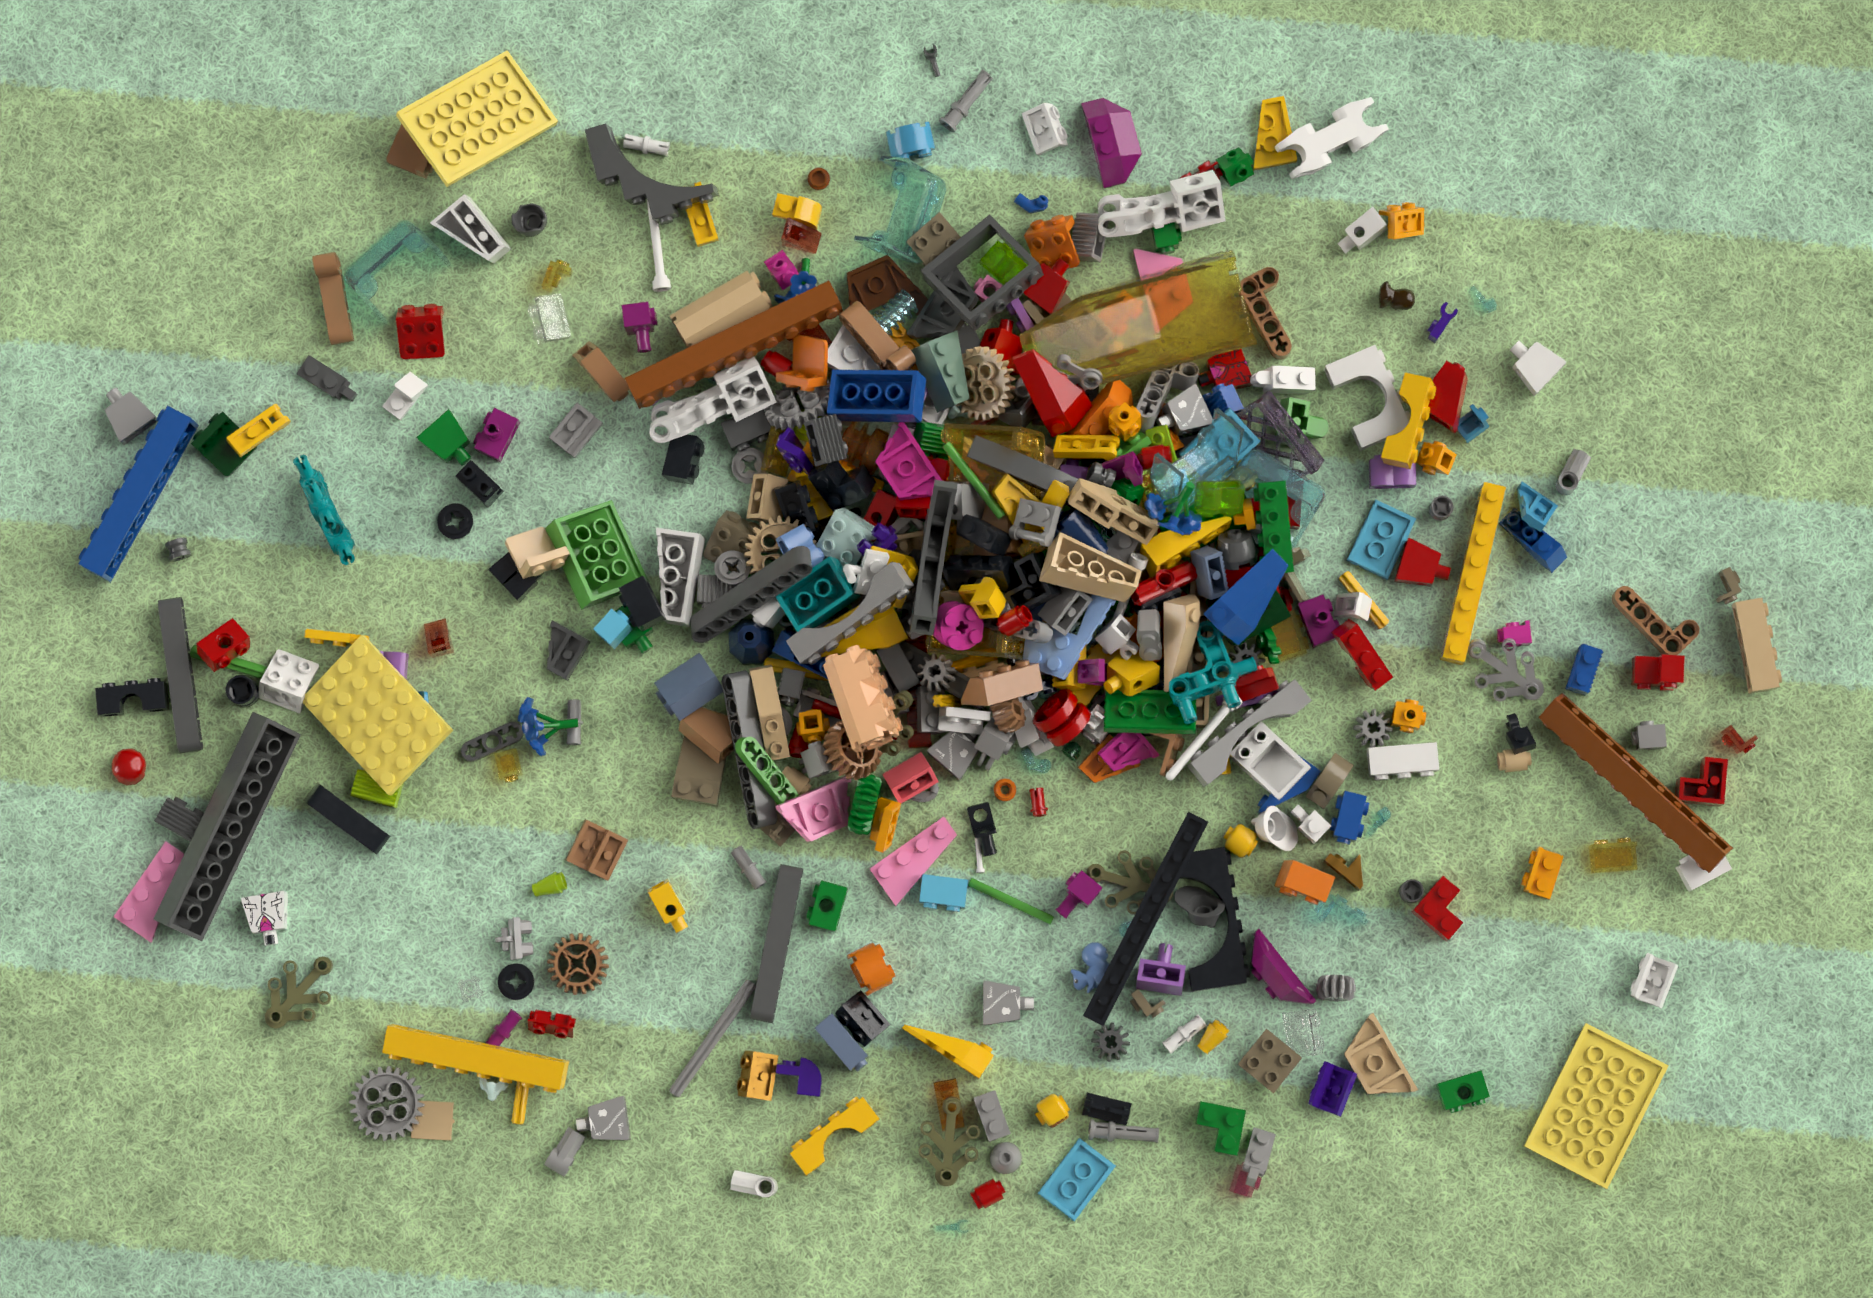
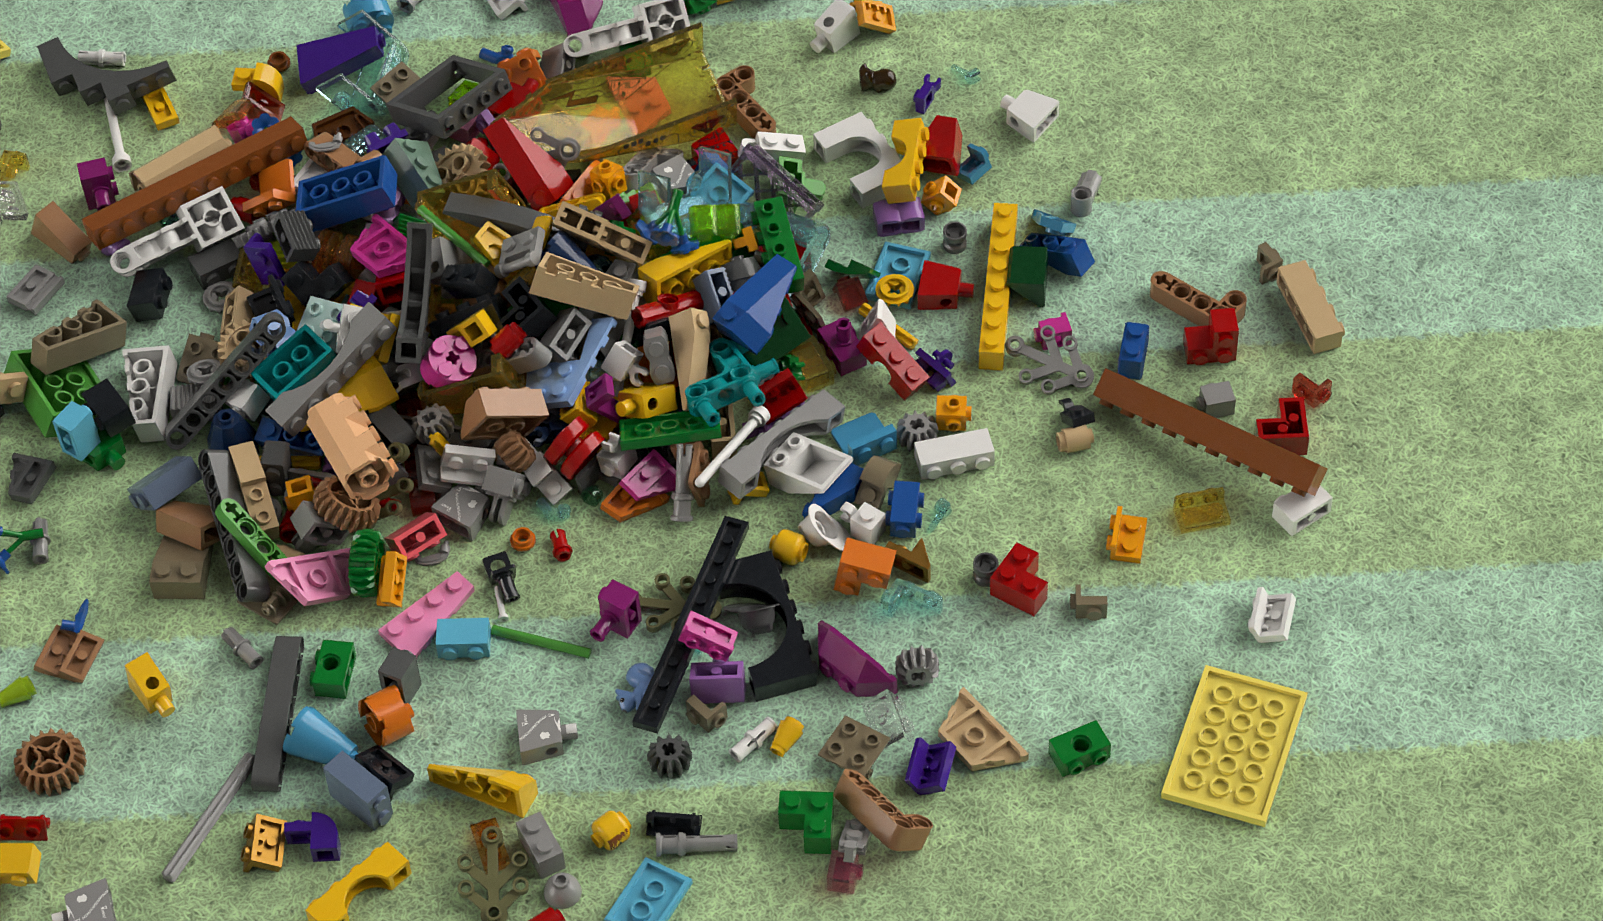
camera: 10 degrees left, 30 degrees down
(604, 822) = (79, 620): none -> blue bar
(619, 507) = (78, 338): none -> dark tan wedge
(770, 247) = (234, 112): none -> clear orange slope
(812, 983) = (317, 738): none -> dark azure cone
(862, 326) = (328, 146): none -> light grey piece
(873, 193) = (338, 54): none -> dark purple slope
(886, 930) = (401, 670): none -> dark grey brick
(926, 319) = (391, 131): none -> dark purple hips
(1151, 774) = (682, 495): none -> light grey pin
(1158, 942) = (708, 636): none -> dark pink bracket
(1280, 1134) = (880, 815): none -> medium nougat beam
(1323, 728) = (865, 438): none -> dark azure bracket
(1334, 557) = (850, 292): none -> clear red bracket
(1346, 538) = (854, 269): none -> green slope
(1377, 554) = (894, 282): none -> yellow gear
(1392, 651) = (941, 375): none -> dark purple hips
(1498, 948) = (1088, 606): none -> dark tan bracket
(1502, 568) = (1029, 272): none -> dark green slope

